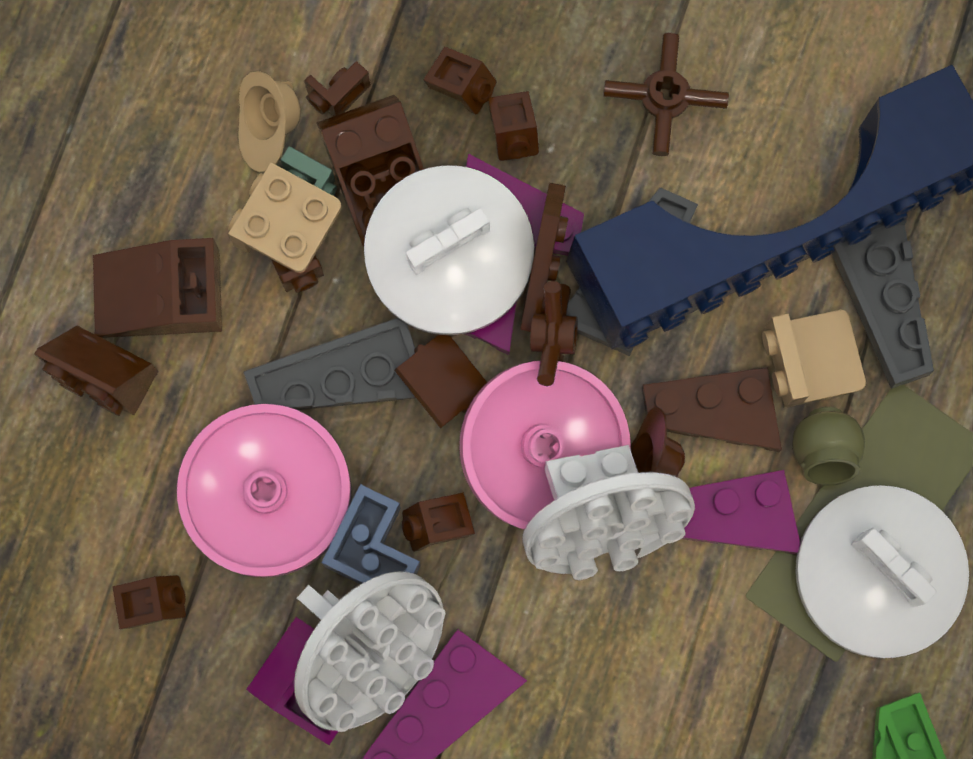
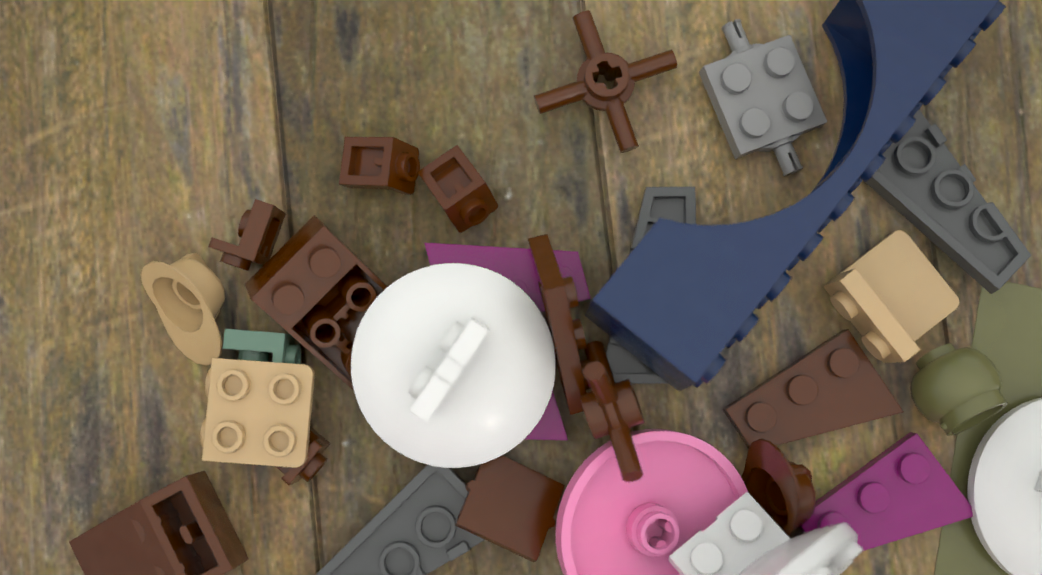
camera: 20 degrees left, 5 degrees up
(784, 161) = (762, 97): none -> light grey plate

